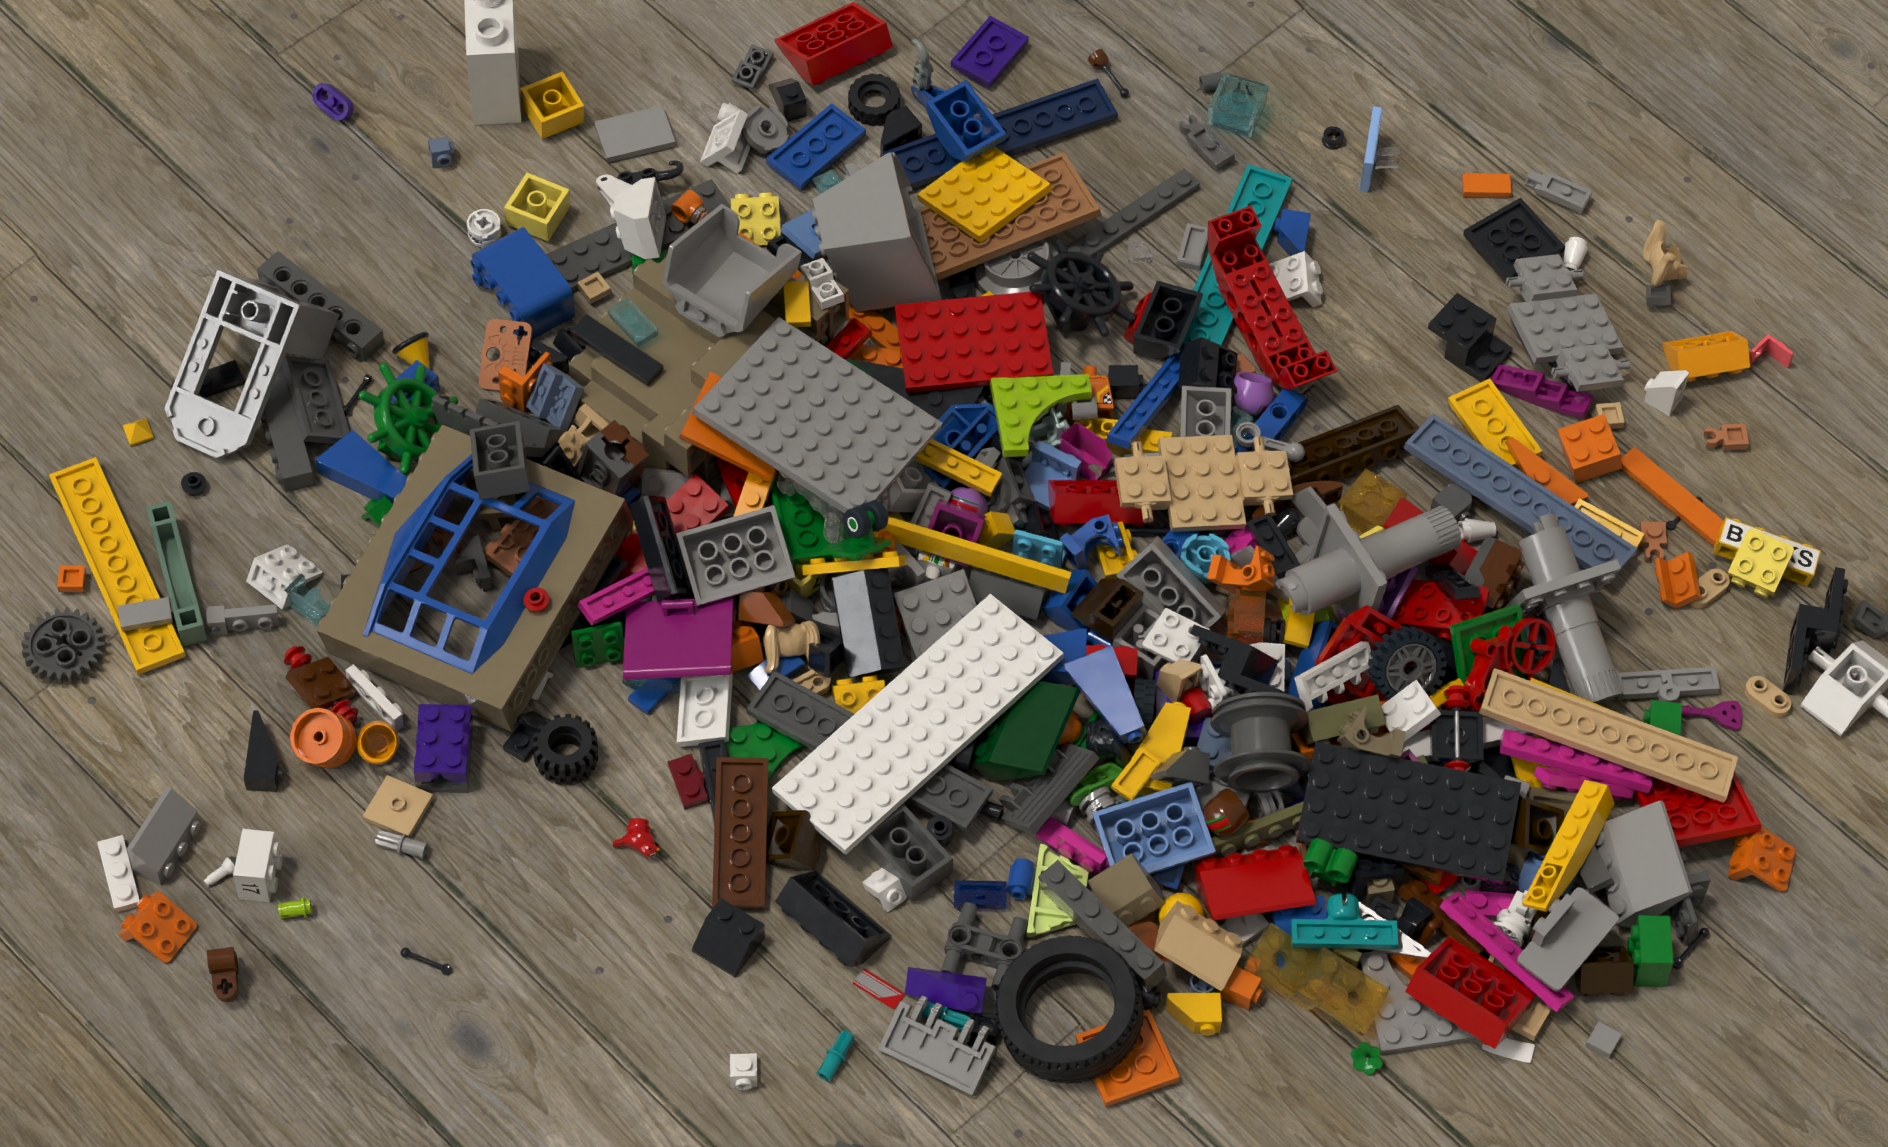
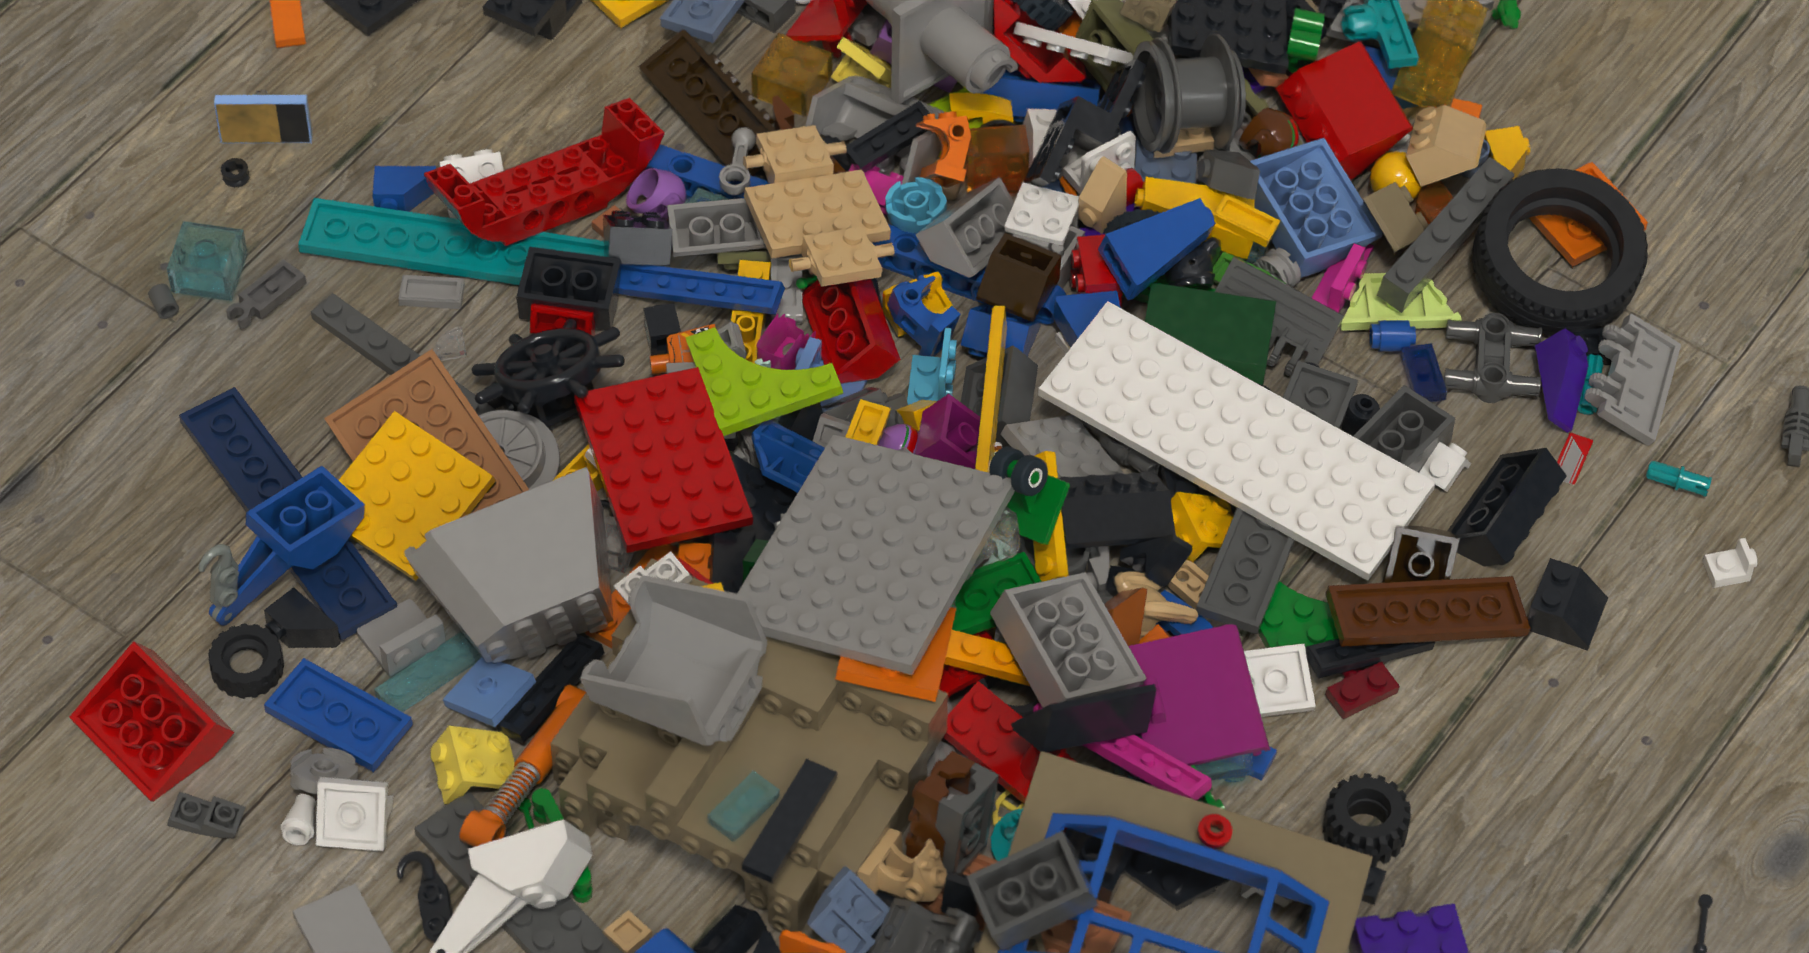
camera: 100 degrees left, 5 degrees down
(638, 838) = (1462, 722): red animal -> none
(789, 99) = (256, 759): black slope -> none
(989, 51) = (144, 543): dark purple plate -> none
(1040, 522) = (904, 379): black slope -> none
(1099, 60) = (144, 422): hinge -> none

